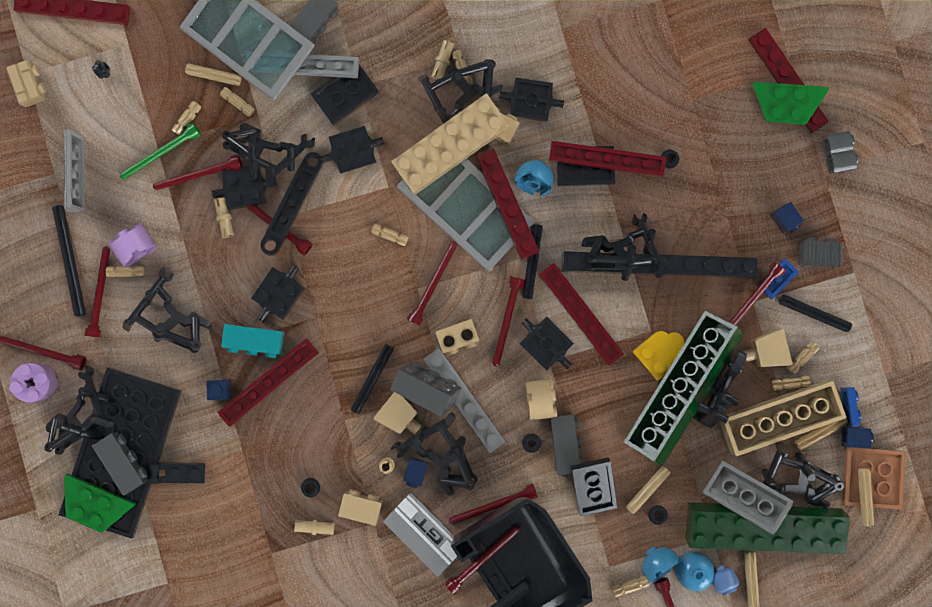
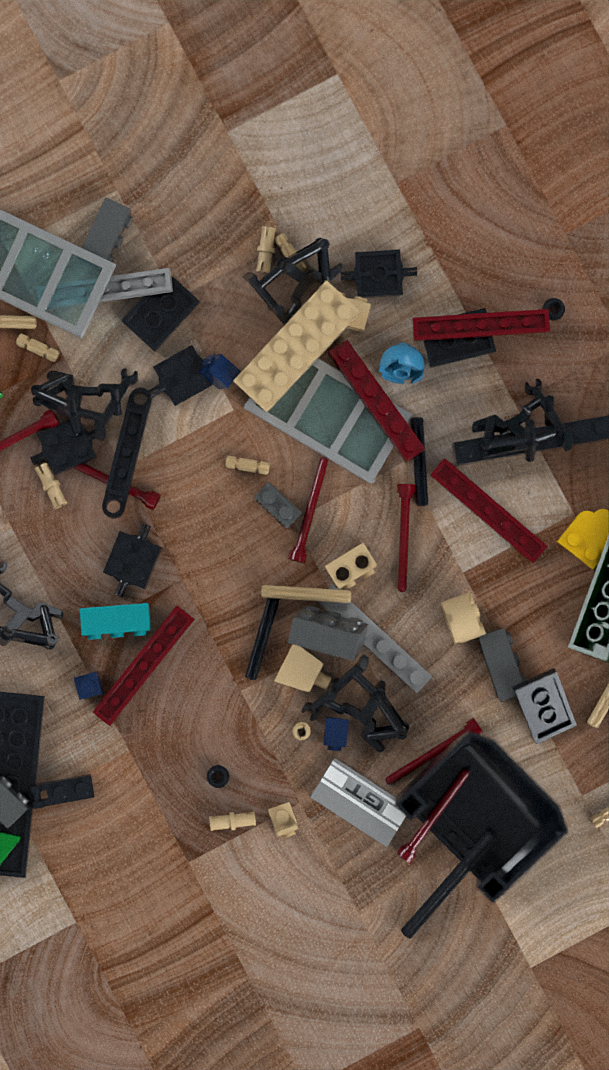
camera: 10 degrees left, 0 degrees up
(357, 535) = (283, 820): none -> tan bracket
(360, 507) = (281, 786): tan brick -> none
(382, 151) = (219, 371): none -> dark blue brick
(407, 273) = (278, 505): none -> dark grey brick
(415, 351) = (308, 594): none -> tan axle
(527, 438) = (455, 668): black plate -> none
(546, 343) = (455, 552): black plate -> none

